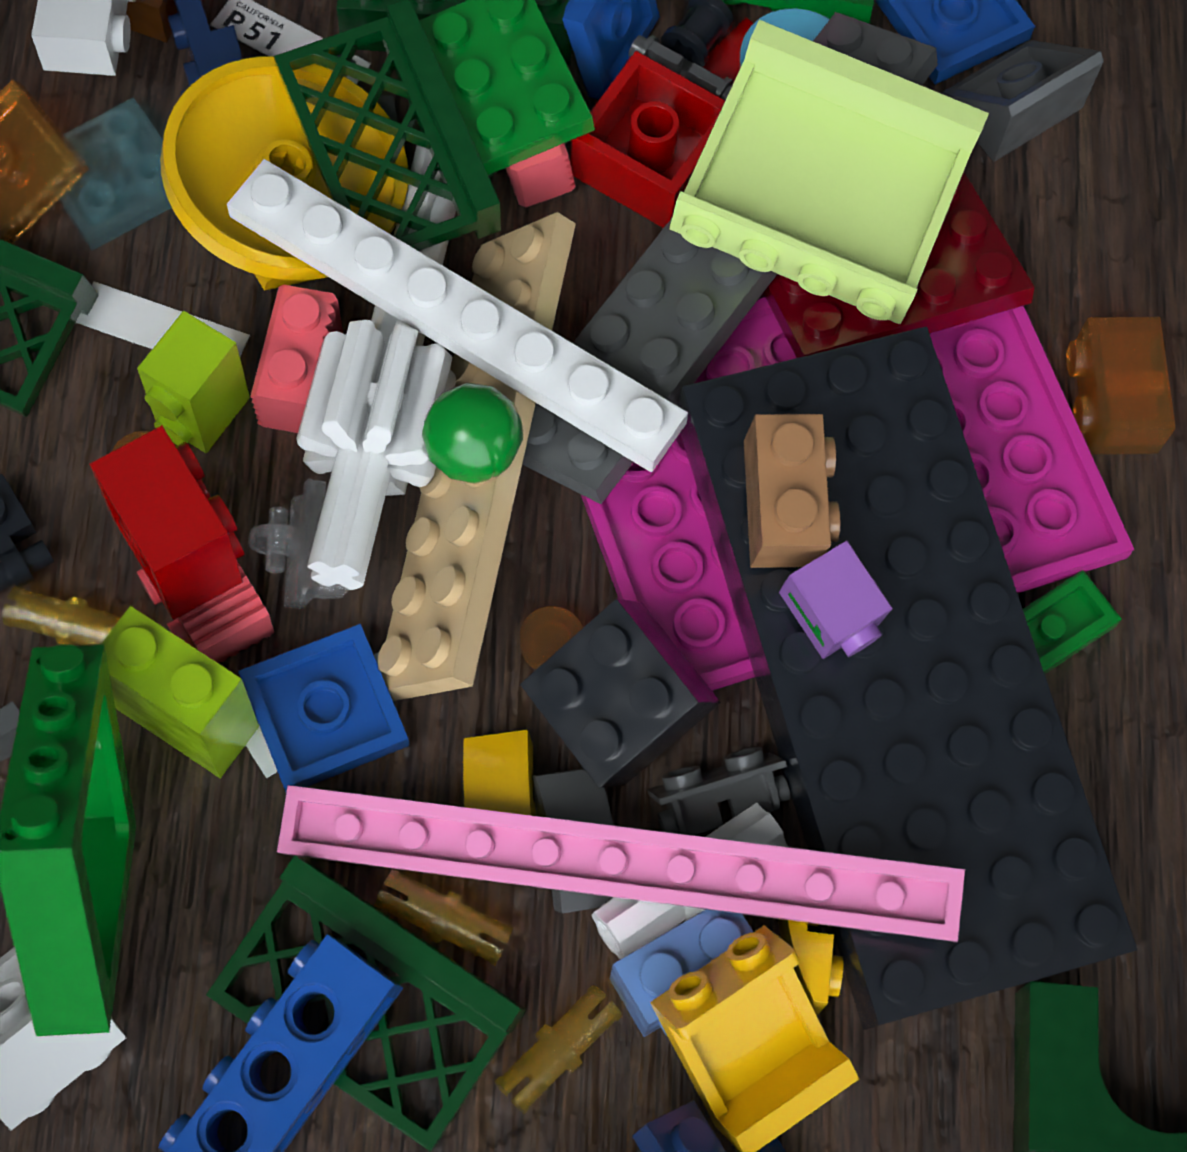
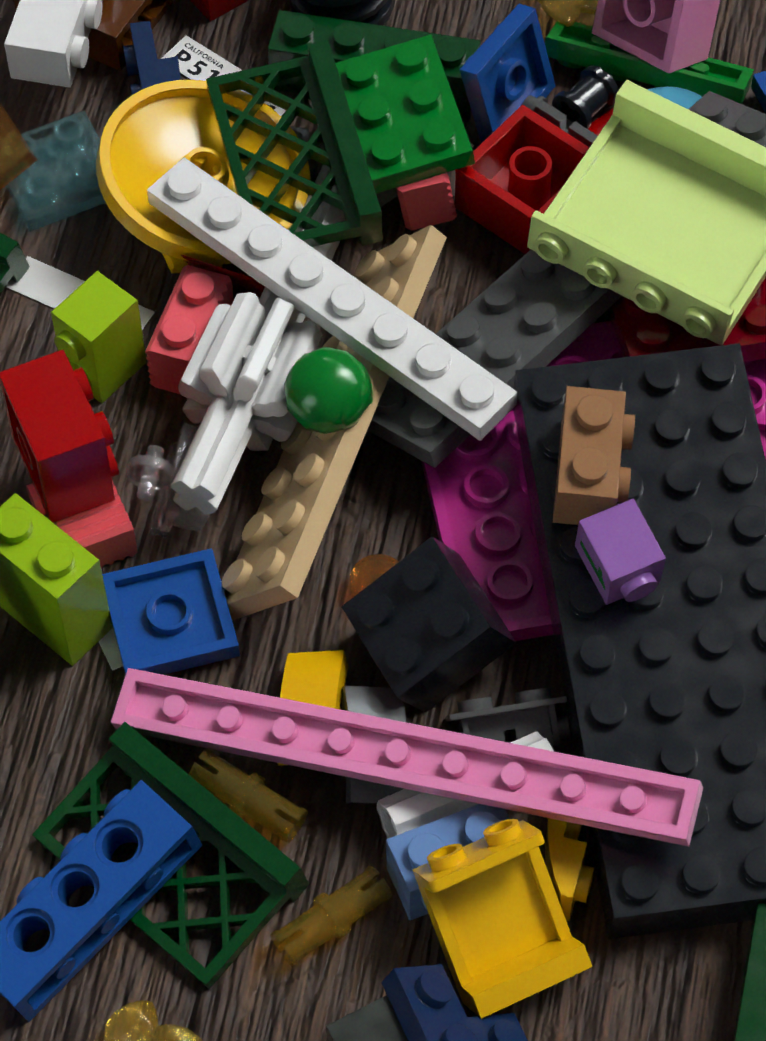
camera: 15 degrees right, 10 degrees down
(339, 294) = (239, 282): none -> red sticker

